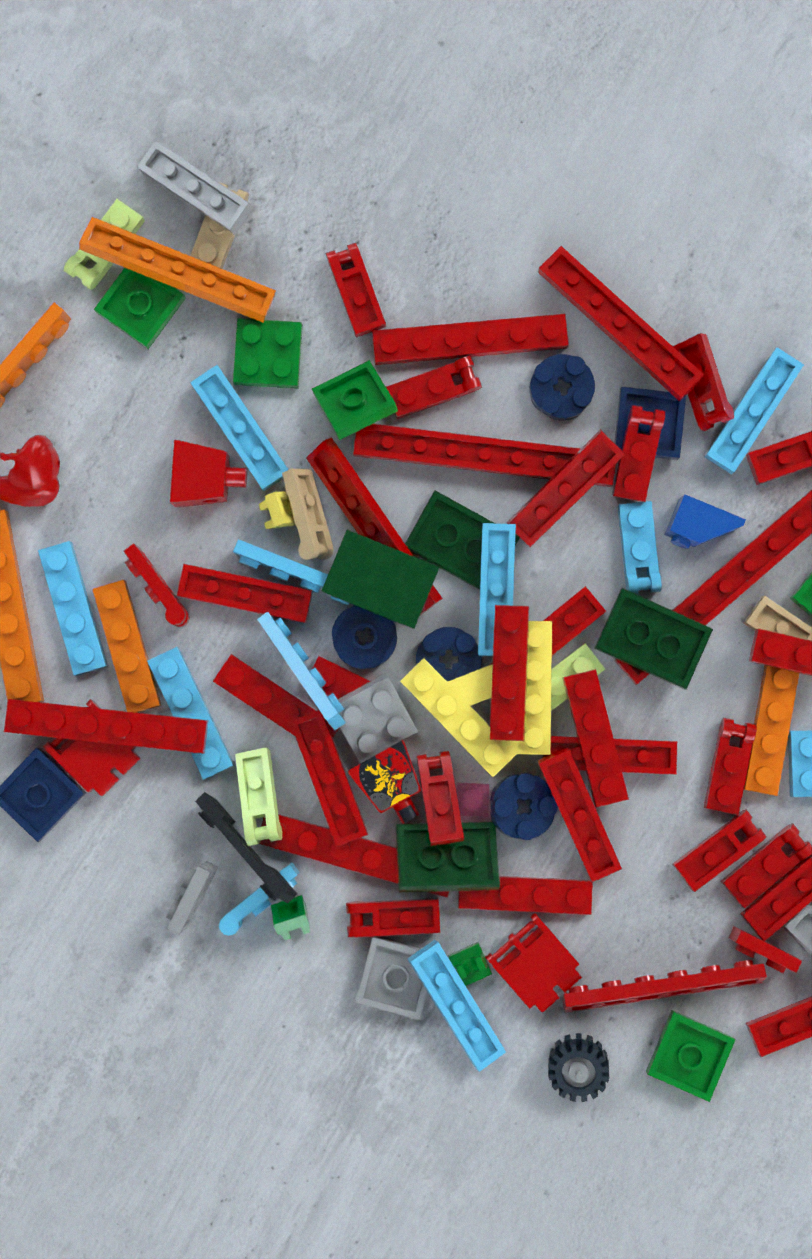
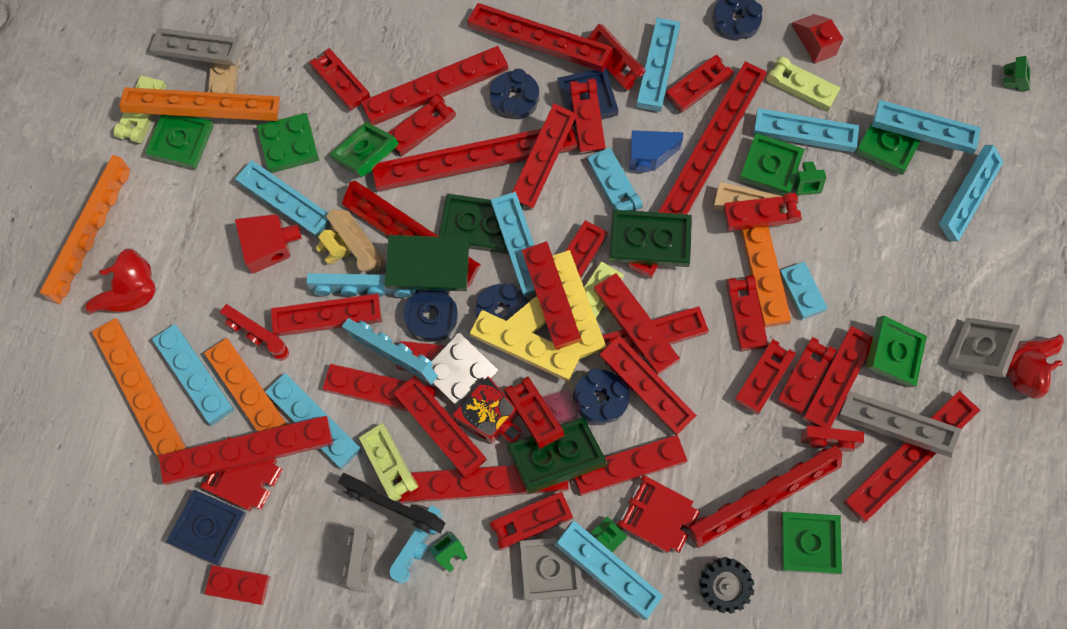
camera: 20 degrees left, 15 degrees down
(53, 869) = (237, 585): none -> red plate

